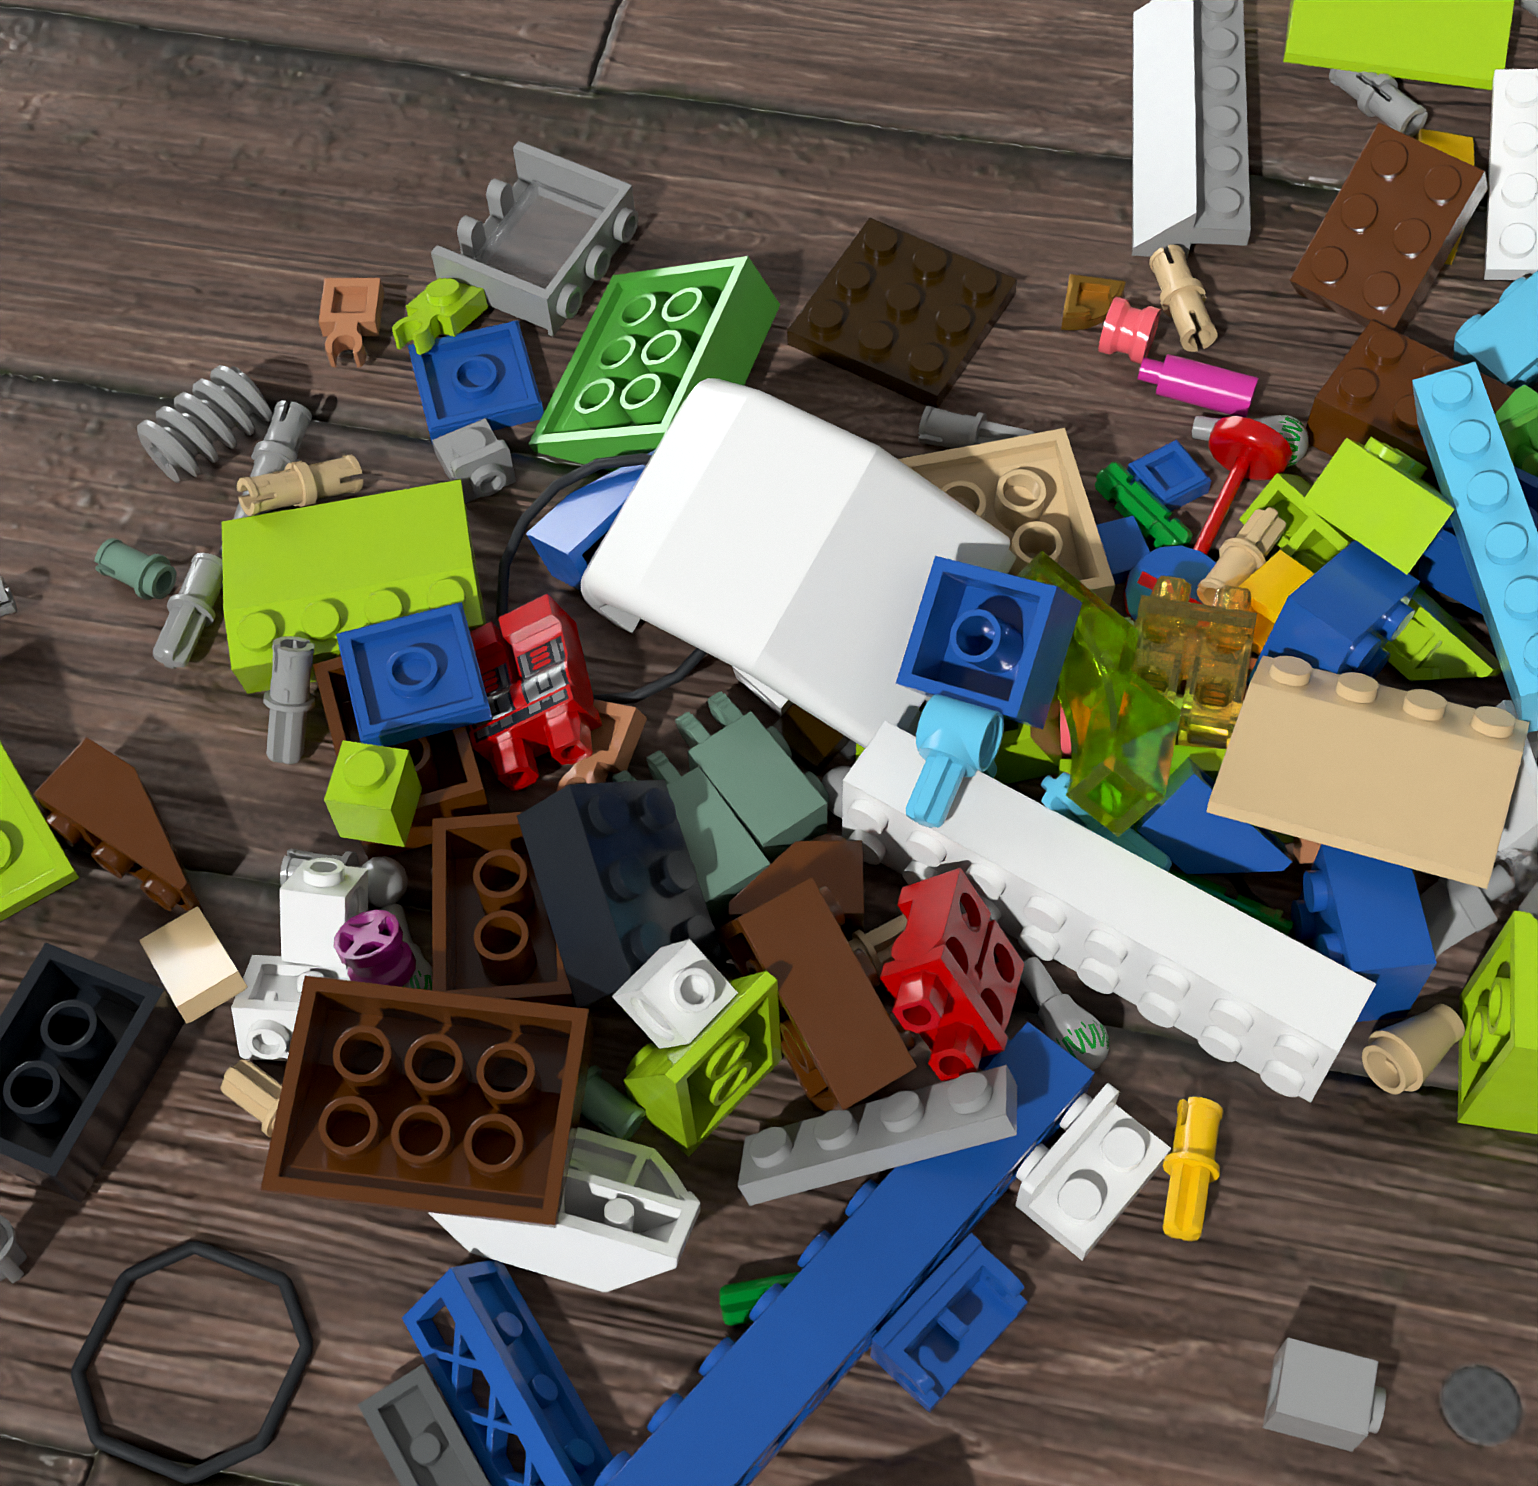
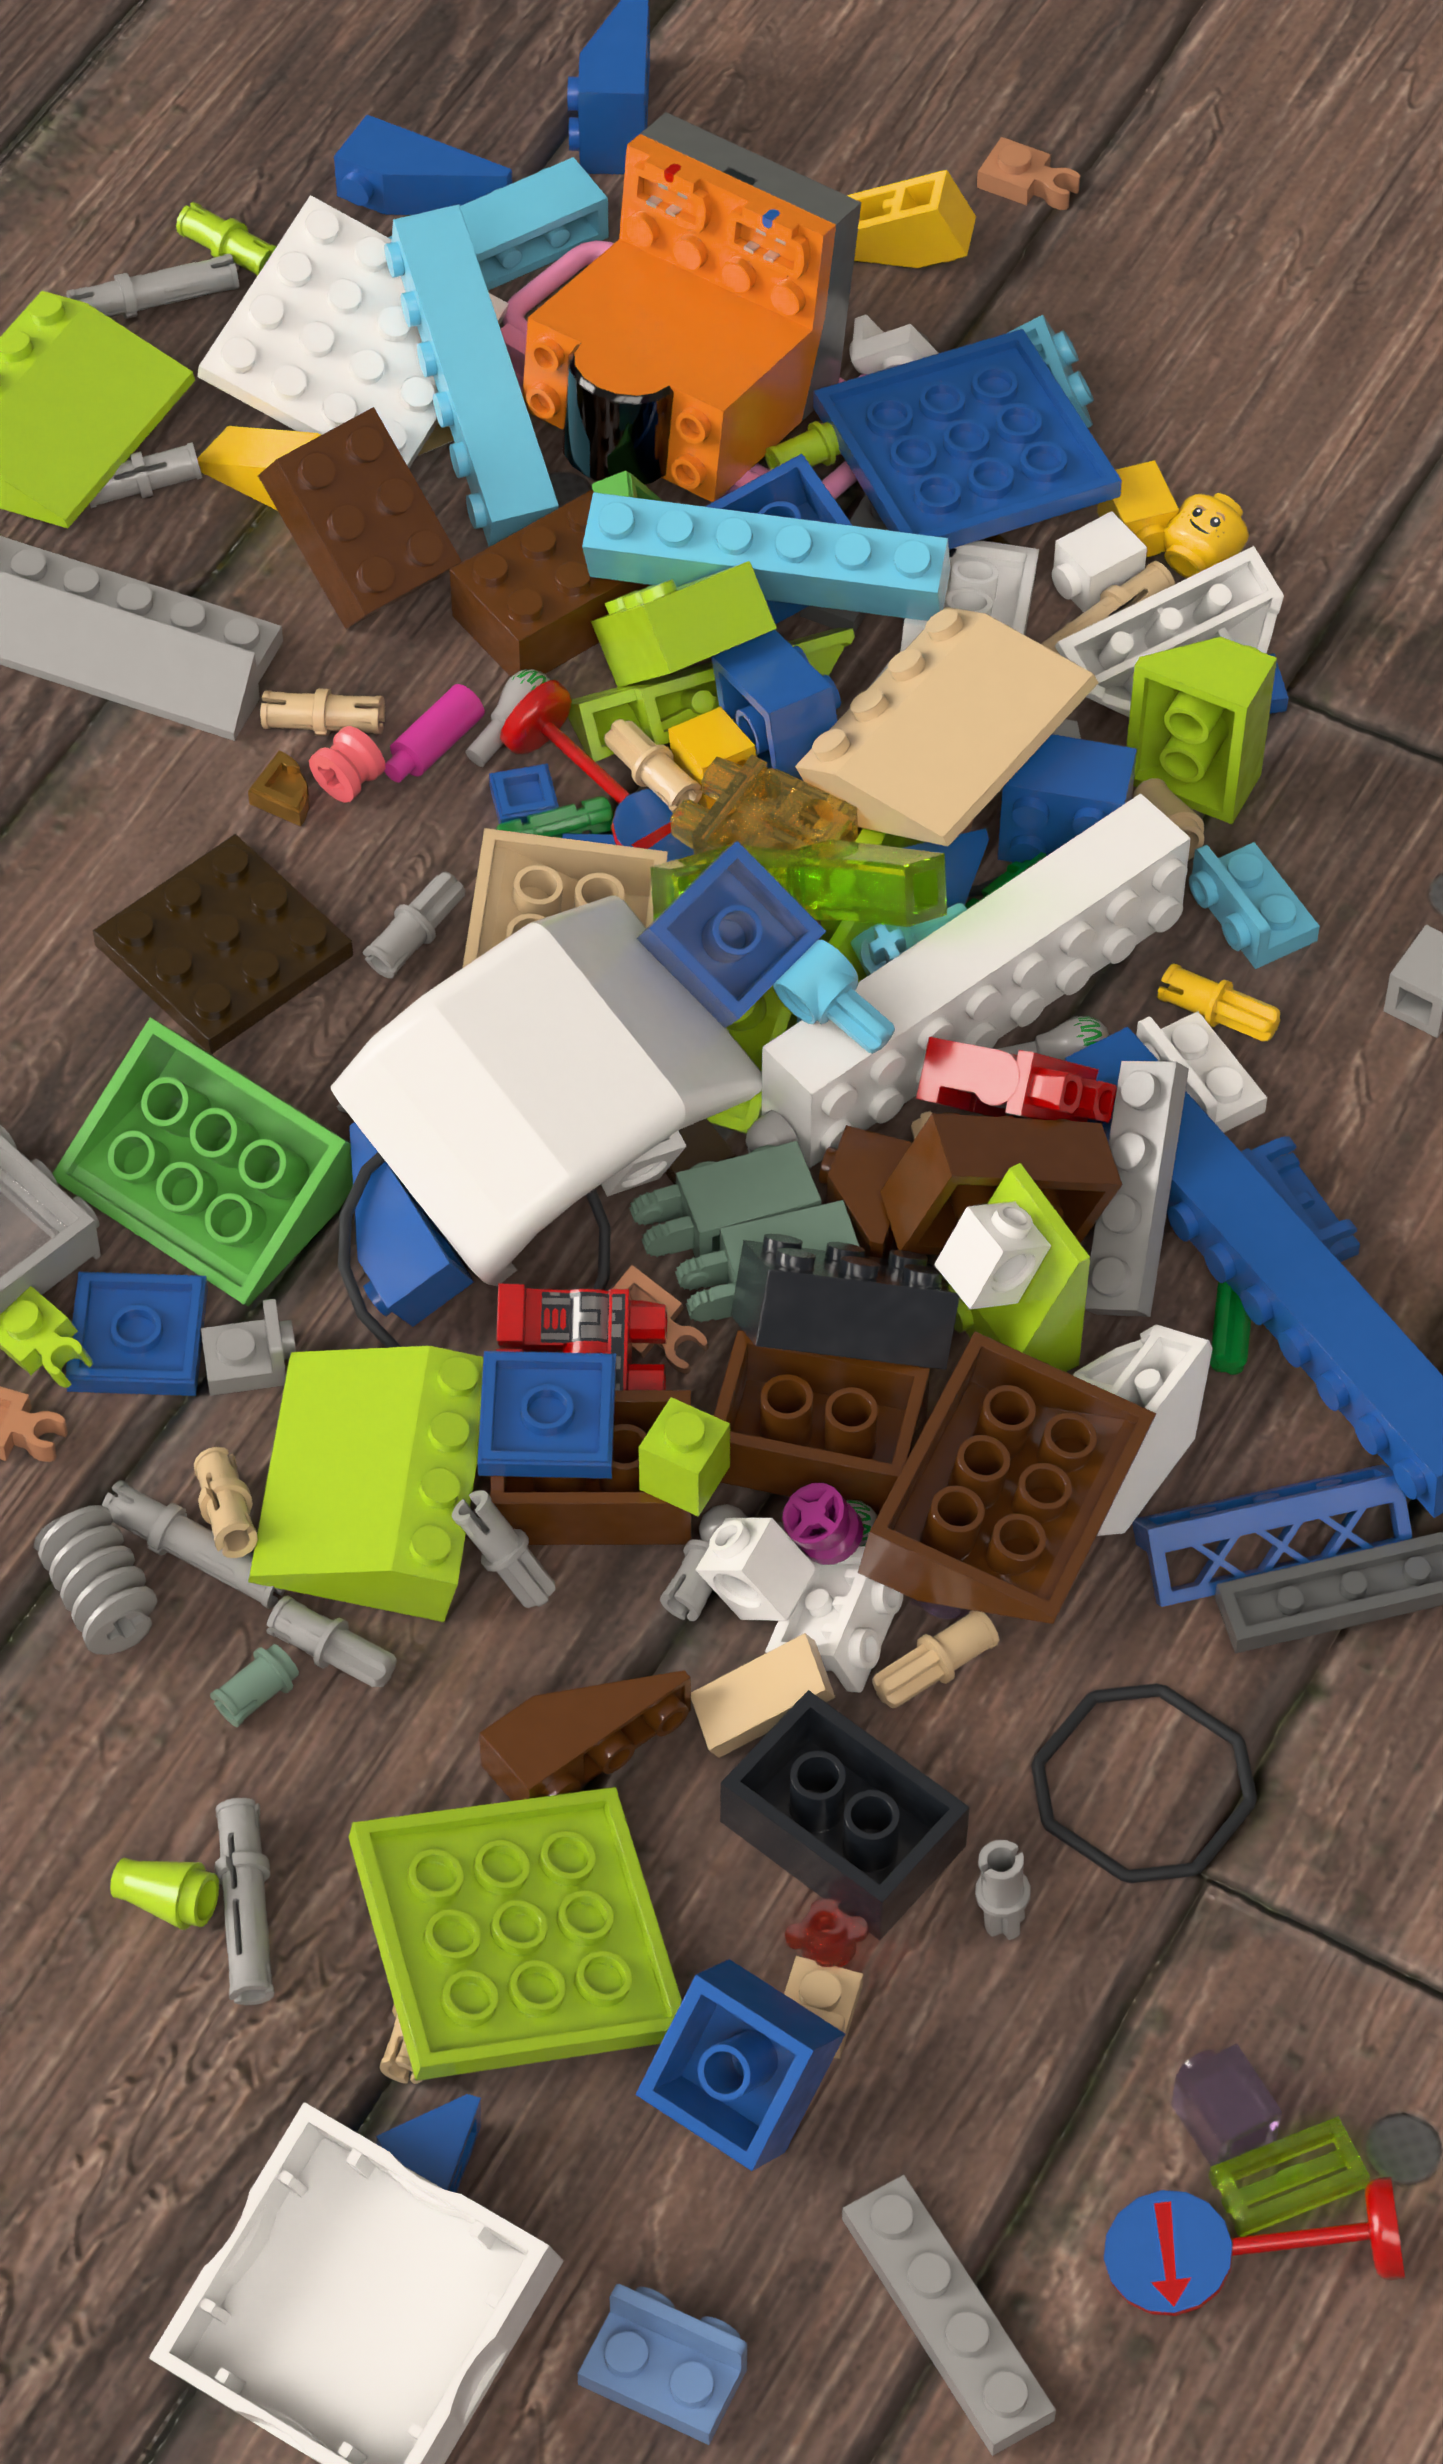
camera: 75 degrees left, 5 degrees down
(1348, 1168) = (1251, 904): none -> medium azure bracket

